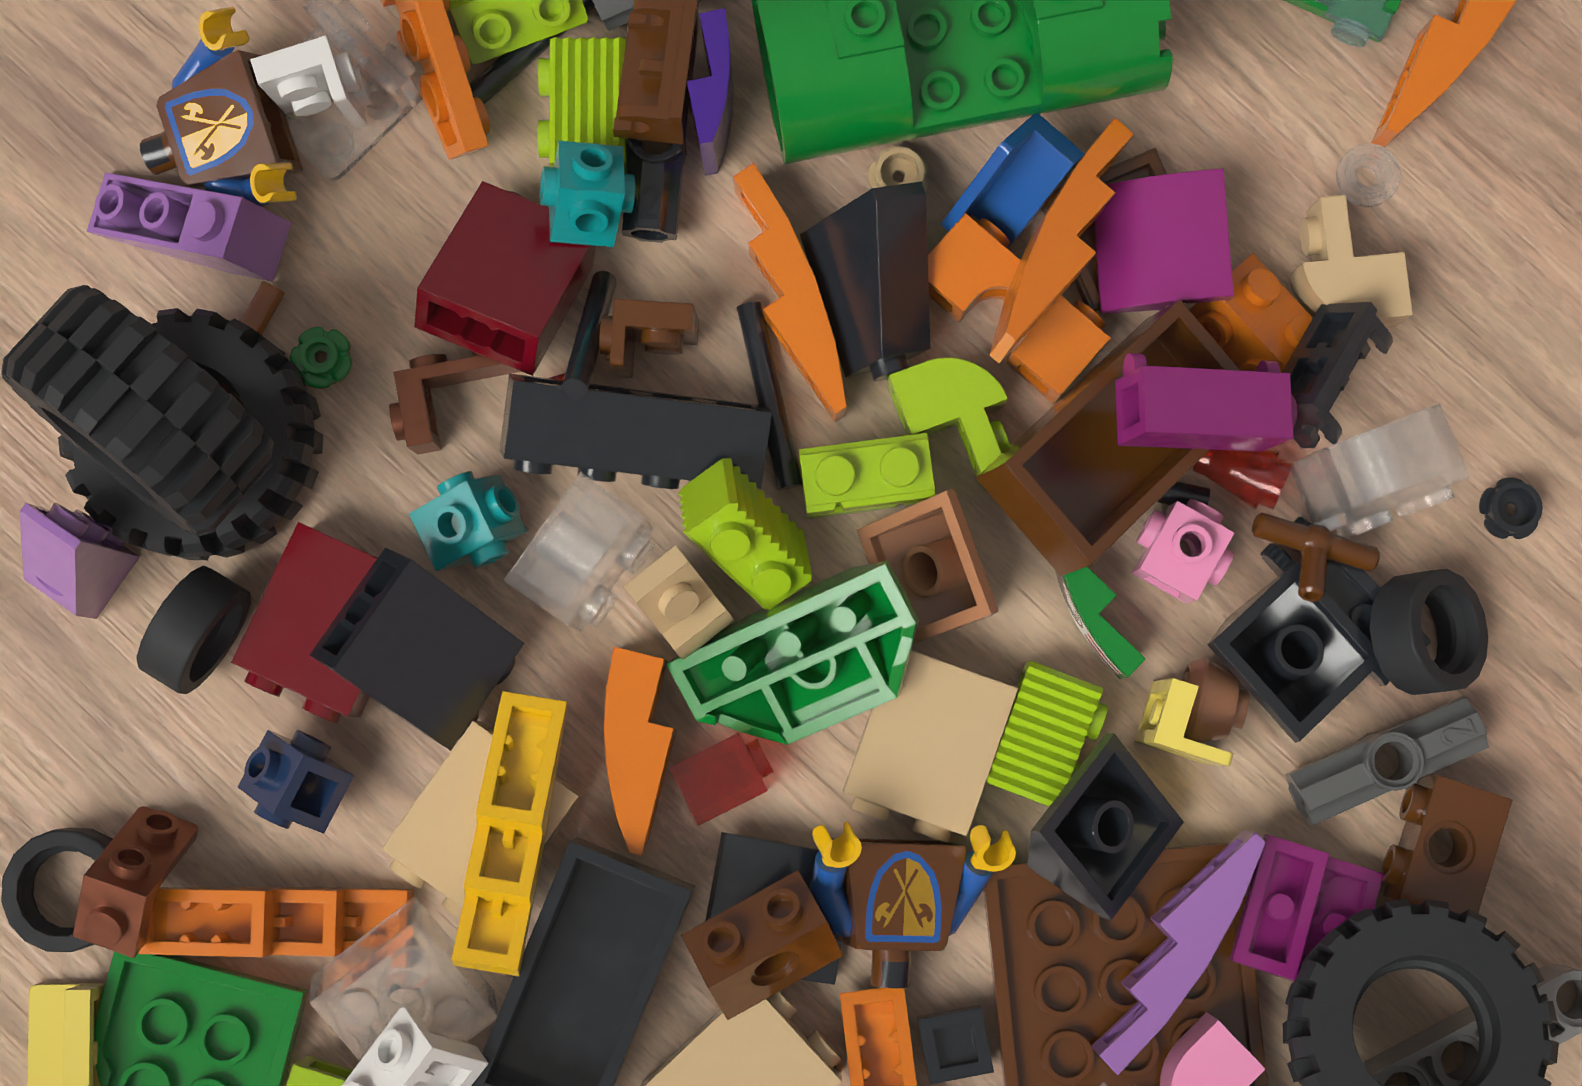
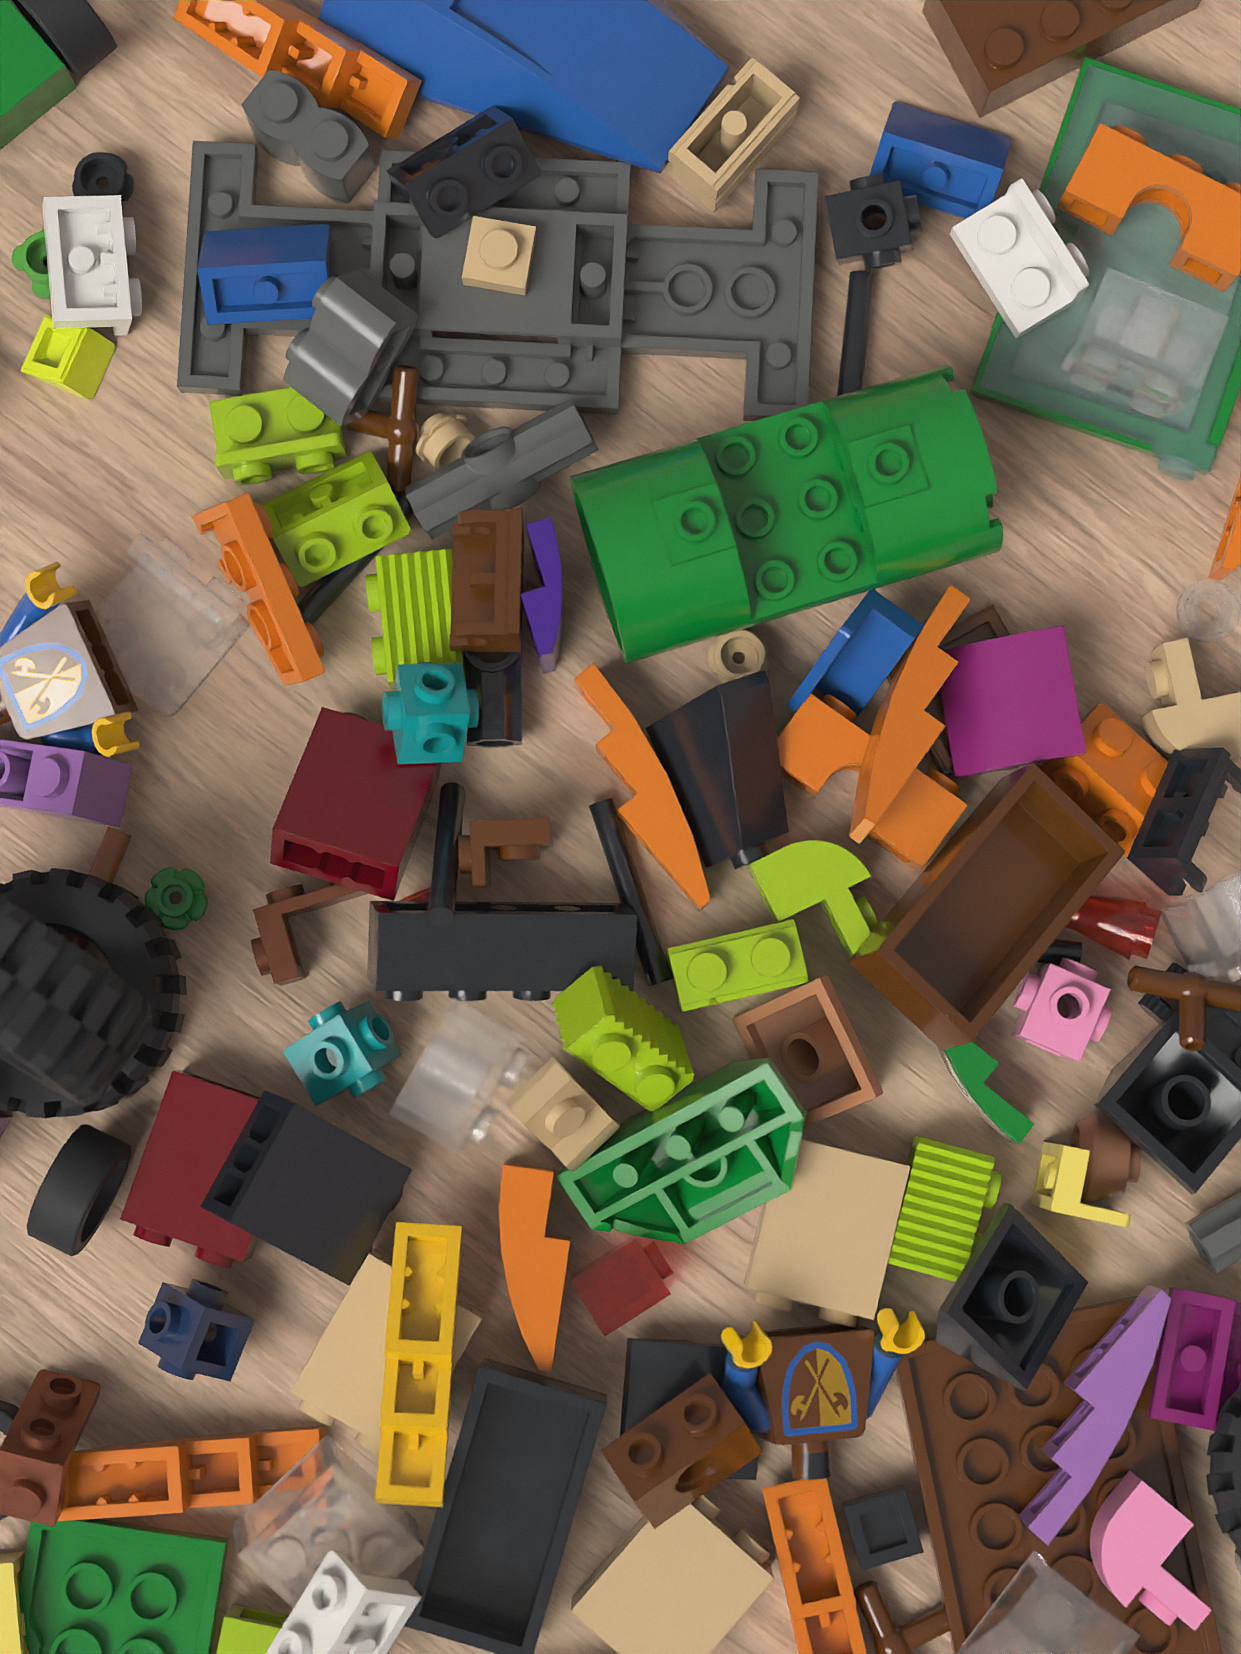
camera: 10 degrees left, 0 degrees up
(309, 76) = (138, 622): white bracket -> none
(1203, 407) = (1068, 871): magenta brick -> none

